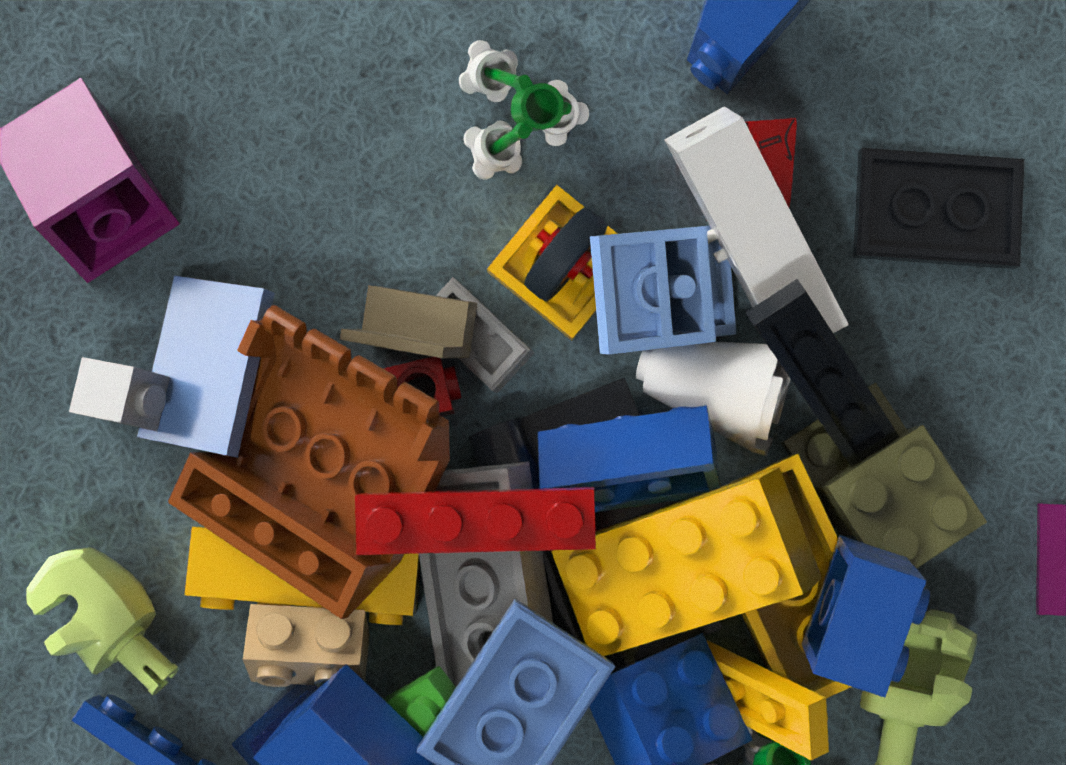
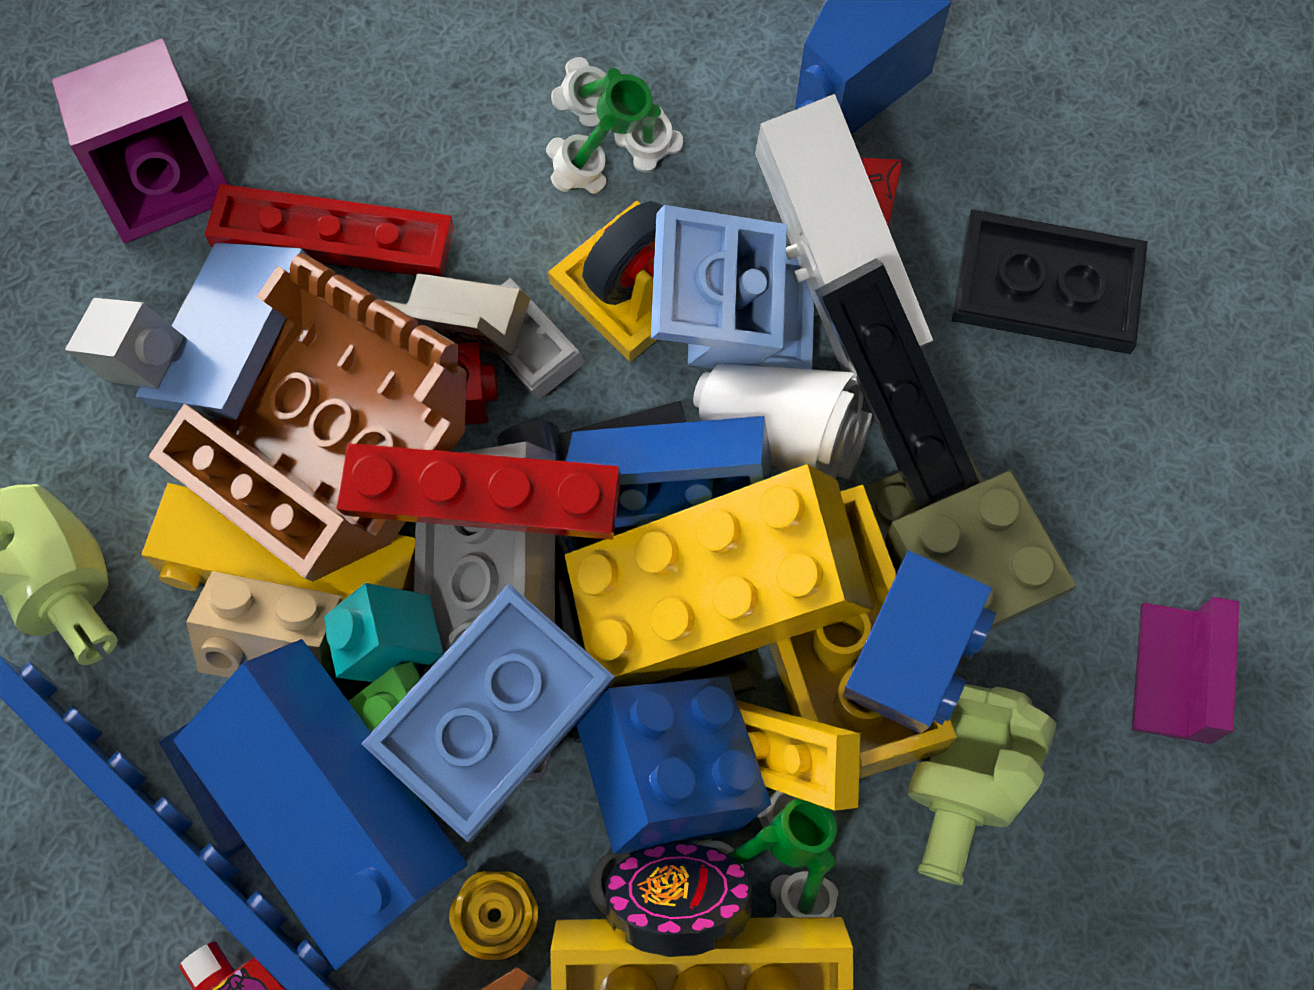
camera: 15 degrees right, 15 degrees down
(278, 250) = (333, 230): none -> red plate
(410, 645) = (381, 630): none -> teal brick

